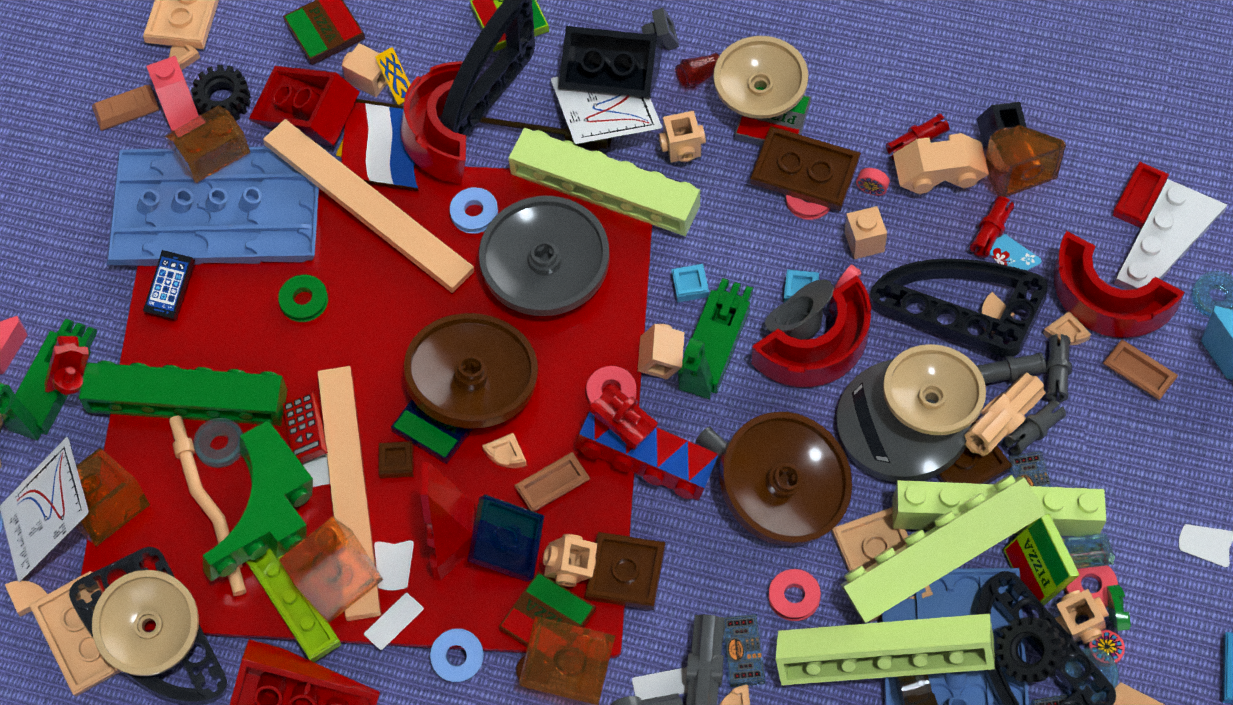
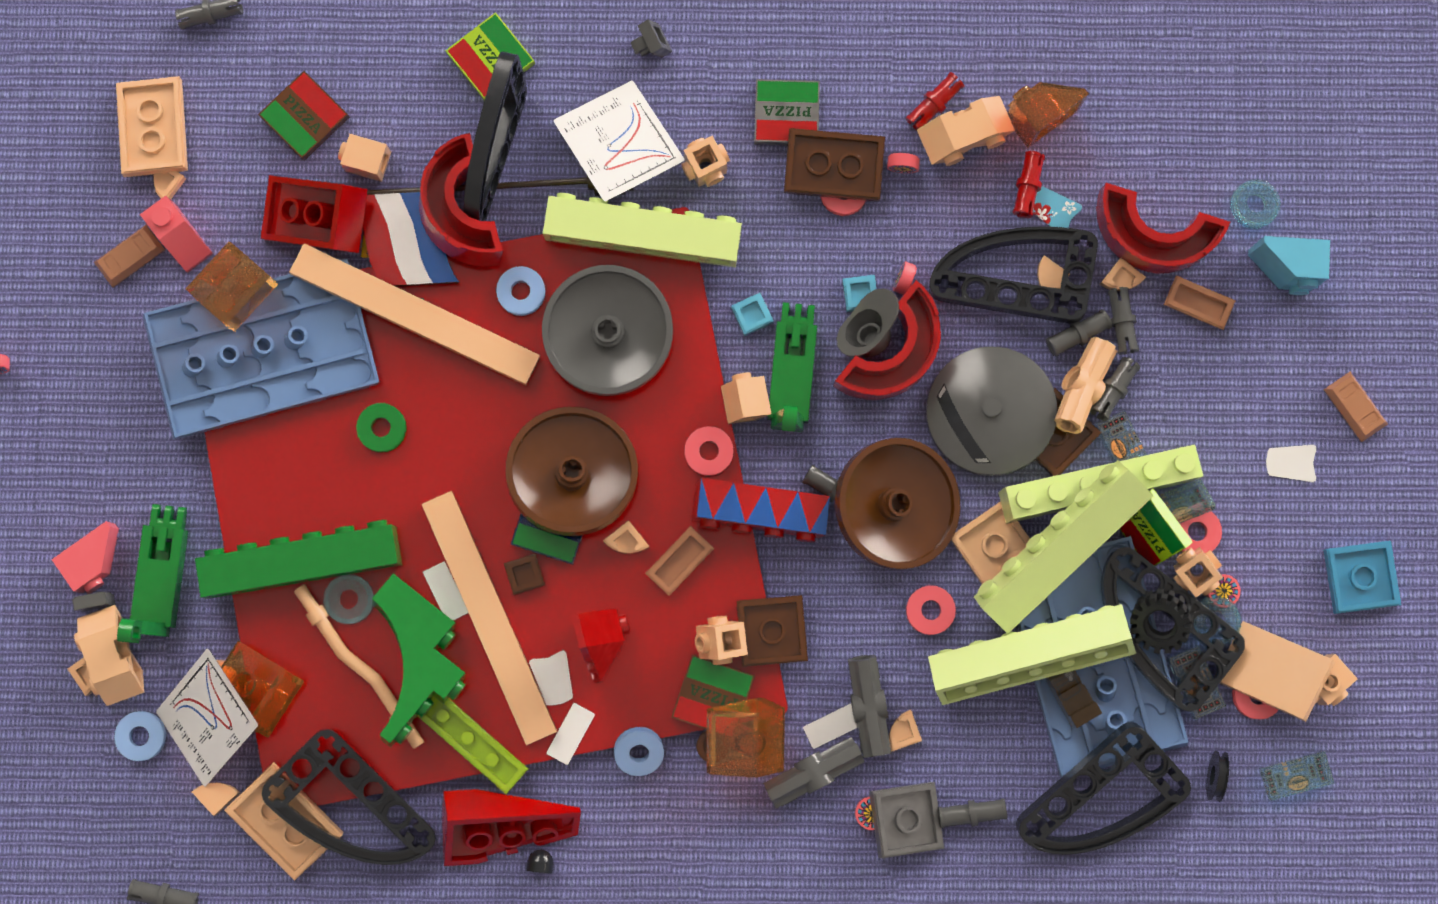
camera: 20 degrees left, 20 degrees up
(66, 366) = (178, 570): red hips -> none
(125, 610) = (339, 831): tan dish -> none
(169, 285) = (245, 450): tile -> none
(221, 80) = (214, 204): black tyre -> none
(305, 427) = (428, 566): red tile -> none
(331, 568) = (501, 707): clear orange slope -> none
(393, 74) = (396, 159): yellow sticker -> none
(506, 538) = (654, 632): clear blue tile -> none
(610, 61) = (610, 94): black slope -> none
(623, 416) = (736, 493): red hips -> none
(695, 70) = (697, 78): clear red cone -> none
(743, 651) = (898, 677): tile -> none
(765, 64) = (768, 59): tan dish -> none
(865, 232) = (910, 222): light nougat brick -> none
(937, 375) = (1034, 374): tan dish -> none
(998, 117) = (1016, 73): black brick -> none
(1117, 616) = (1225, 554): green tile -> none
(1140, 195) = (1162, 112): red tile -> none
(1168, 233) = (1197, 146): white wing -> none

